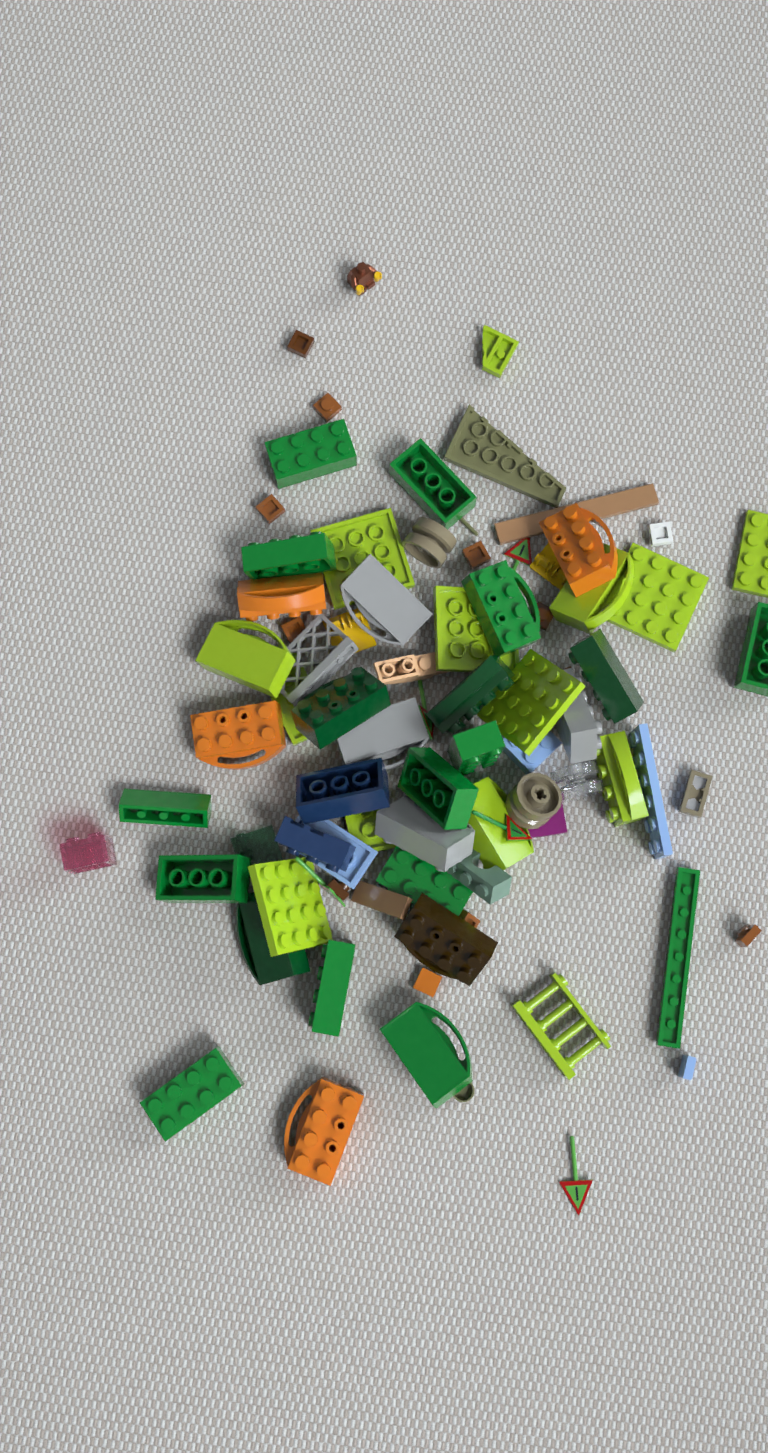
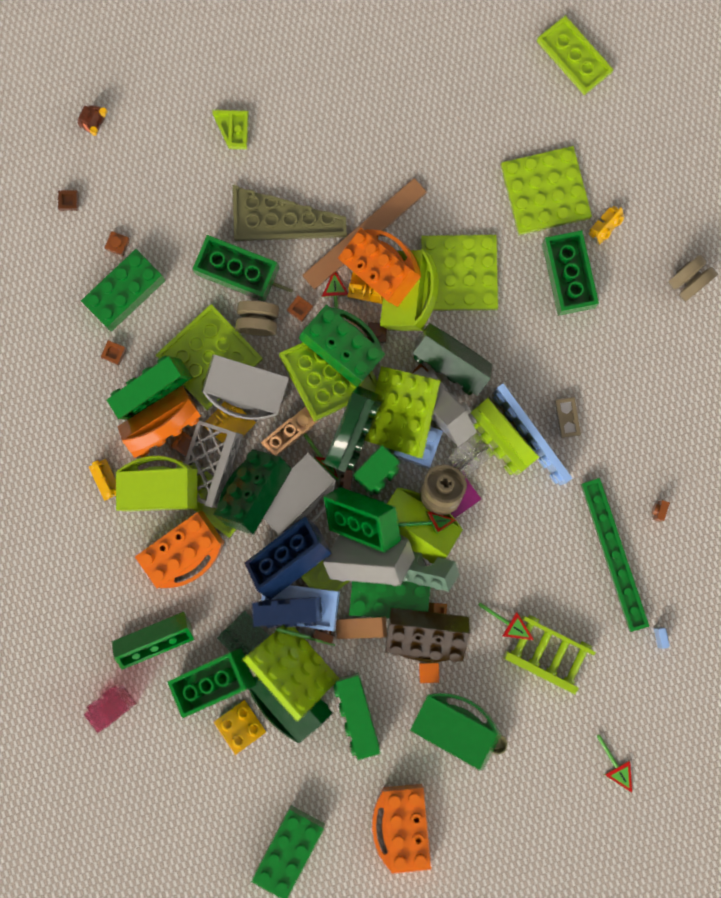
camera: 20 degrees left, 5 degrees up
(198, 625) = (104, 478): none -> yellow hinge
(207, 940) = (239, 727): none -> yellow hinge
(440, 744) = (346, 479): none -> reddish brown plate
(540, 980) = (515, 628): none -> piece
(660, 534) = (440, 217): white plate -> none

